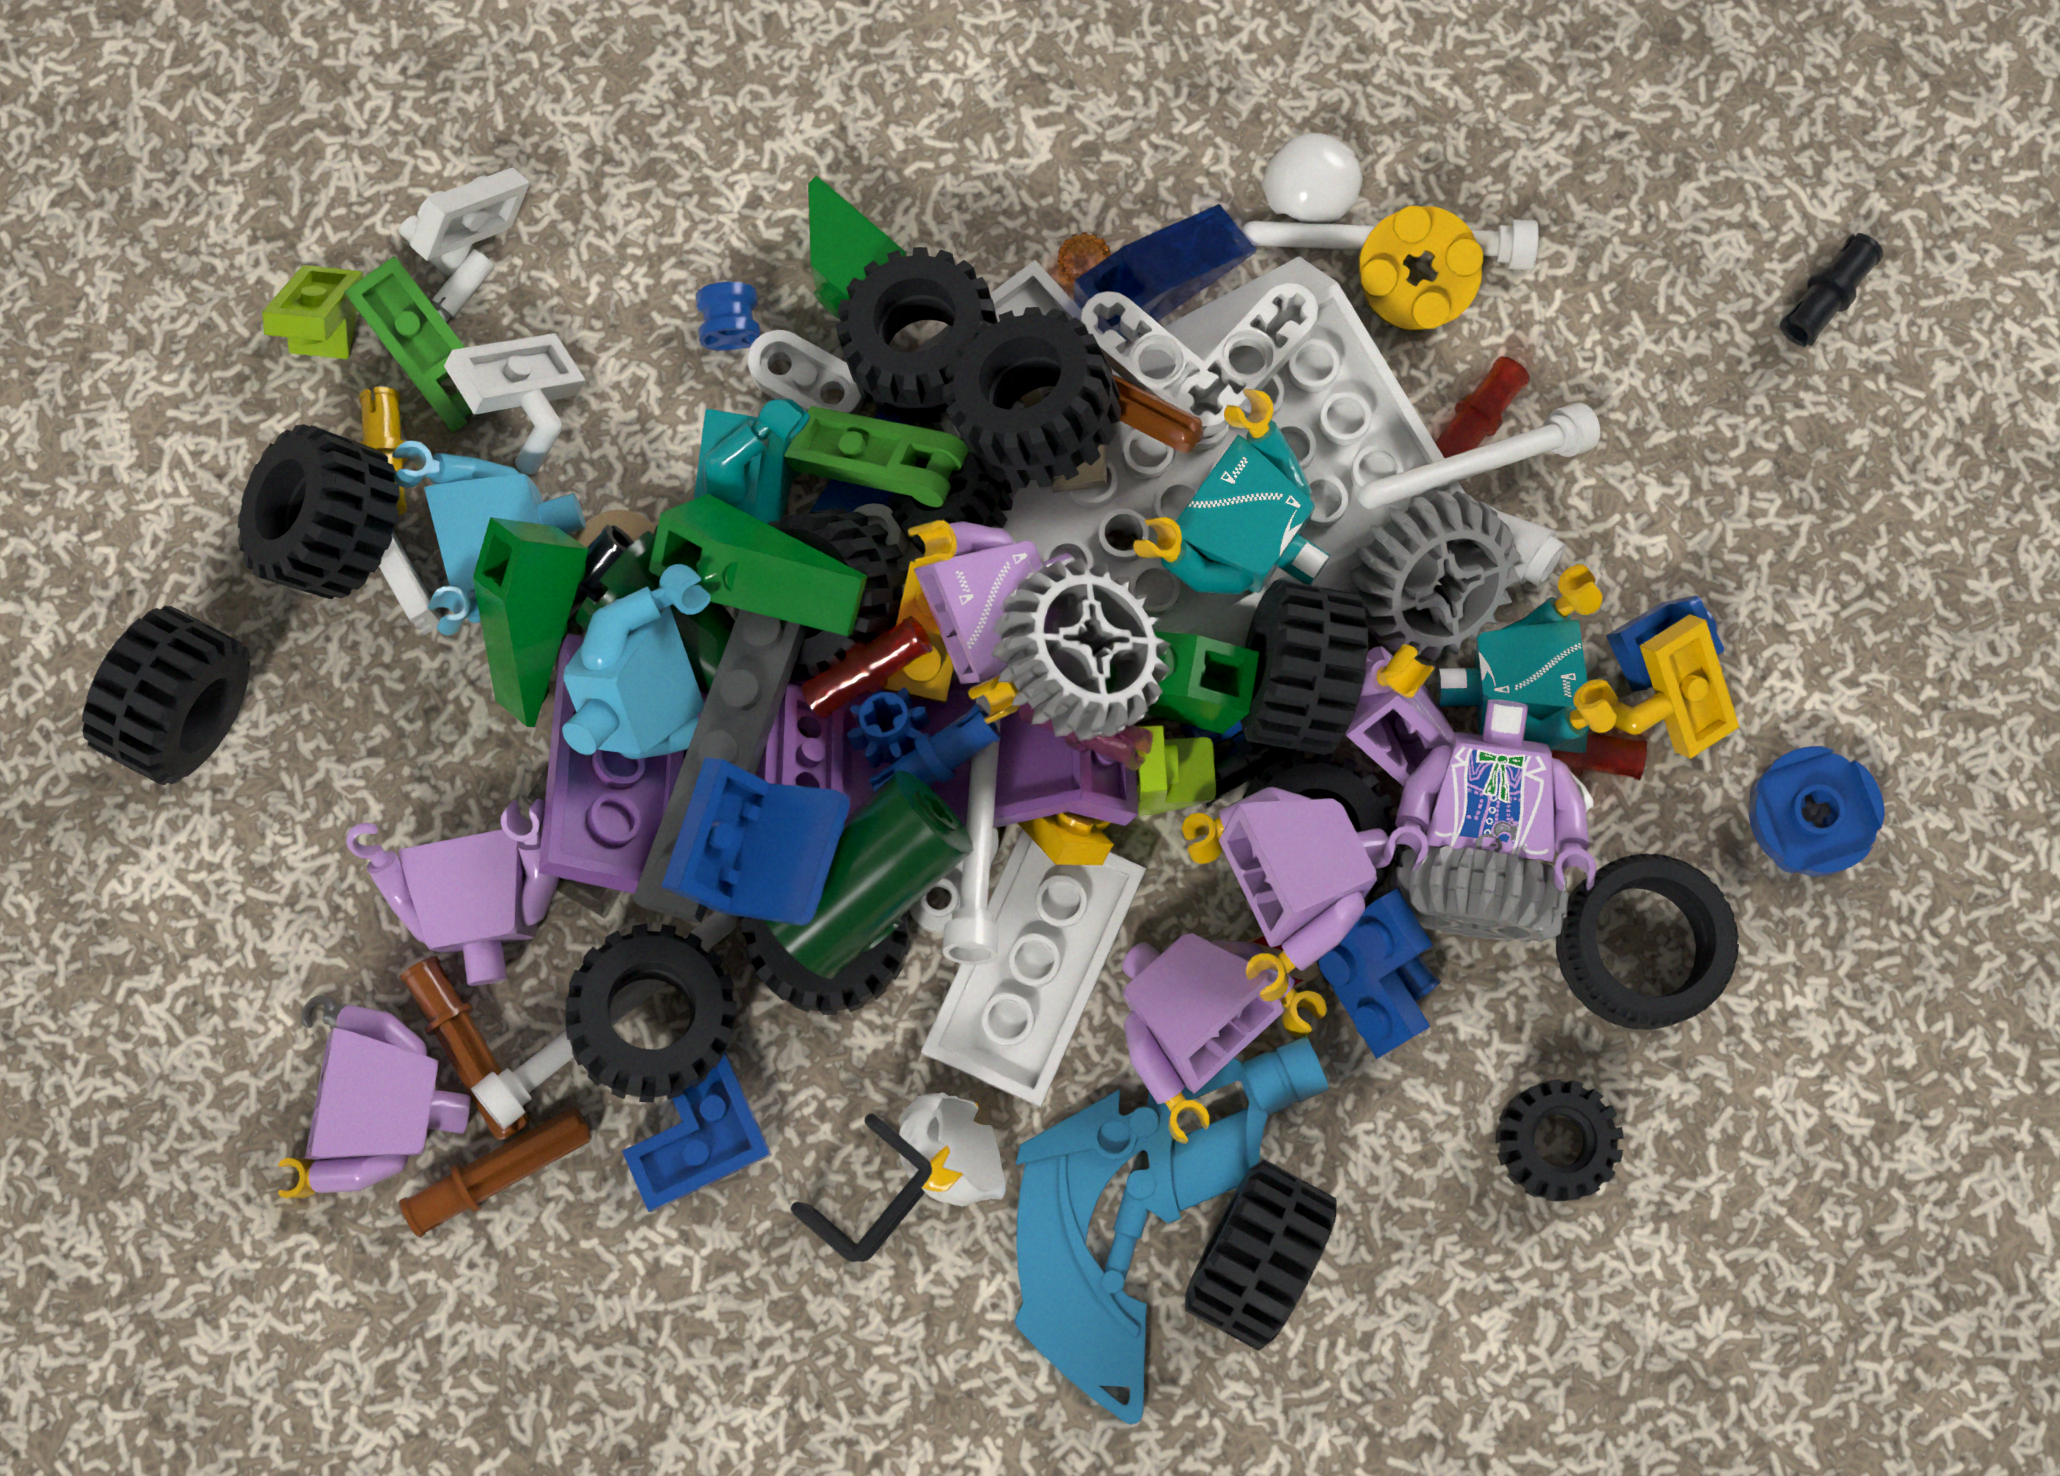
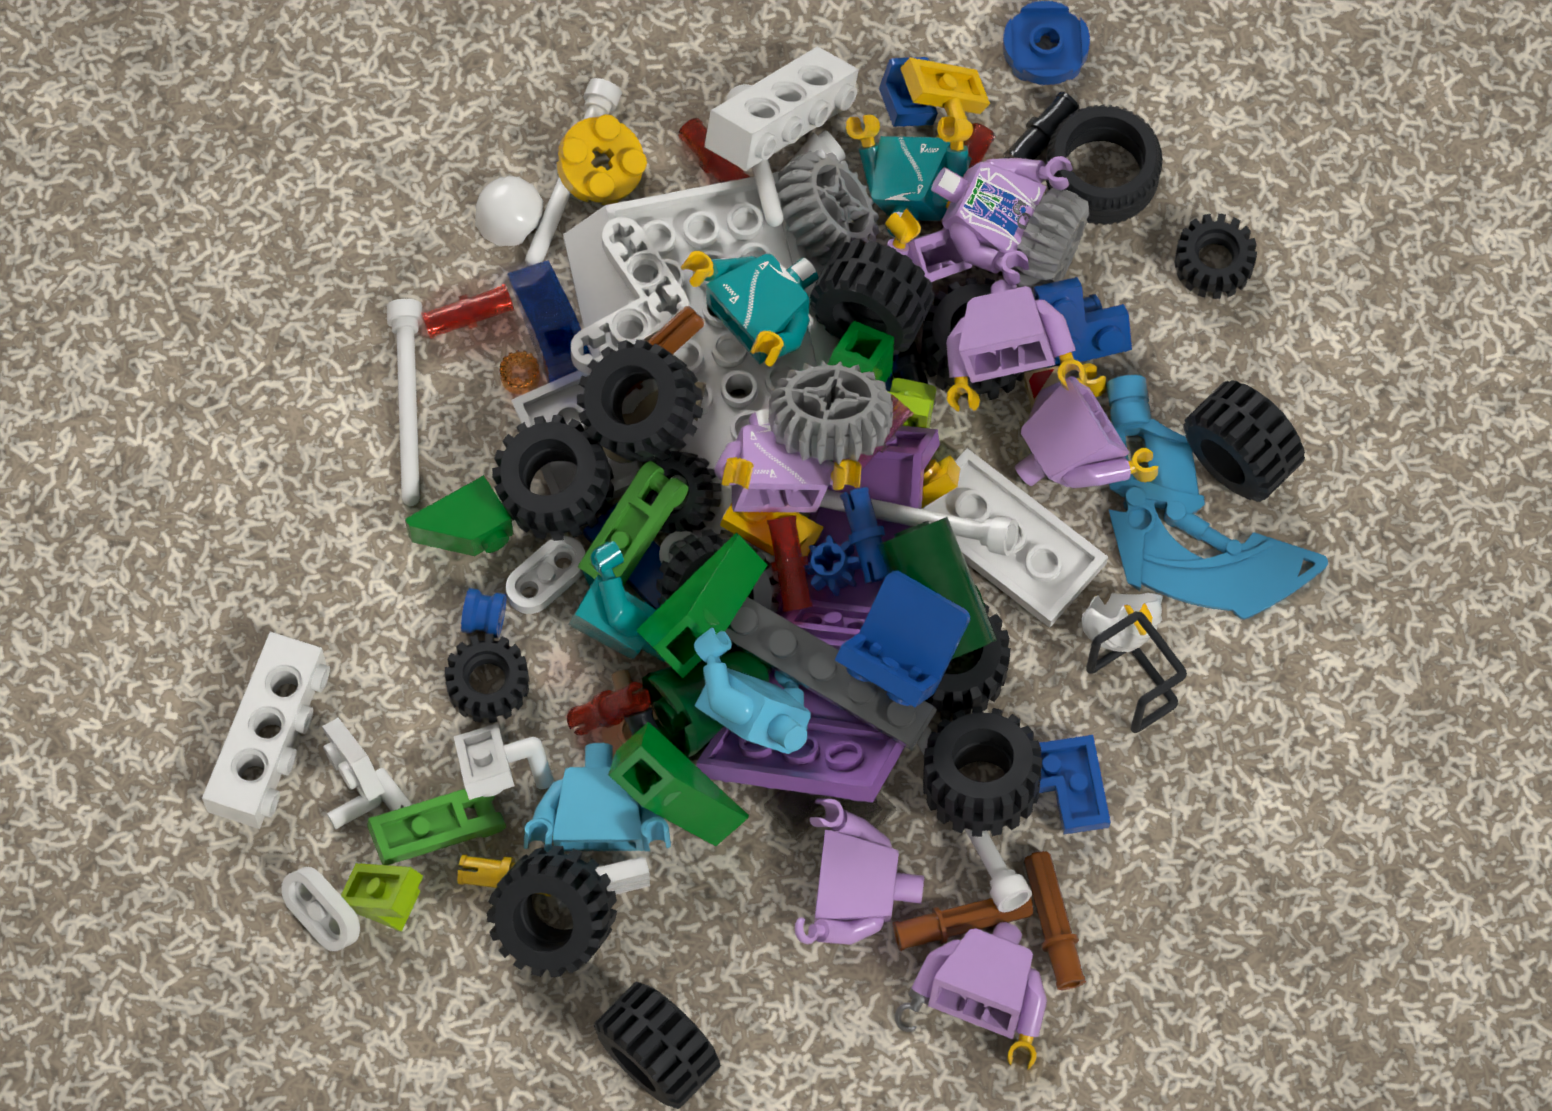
camera: 75 degrees left, 10 degrees down
(267, 264) = (320, 909): none -> white plate
(410, 86) = (280, 663): none -> white brick
(623, 503) = (608, 708): none -> clear red pin
(633, 315) = (480, 653): none -> black tyre
(1109, 100) = (405, 319): none -> white piece
(1147, 170) = (468, 311): none -> clear red pin
(1563, 468) = (781, 108): none -> white brick
(1673, 839) = (1041, 128): none -> black pin

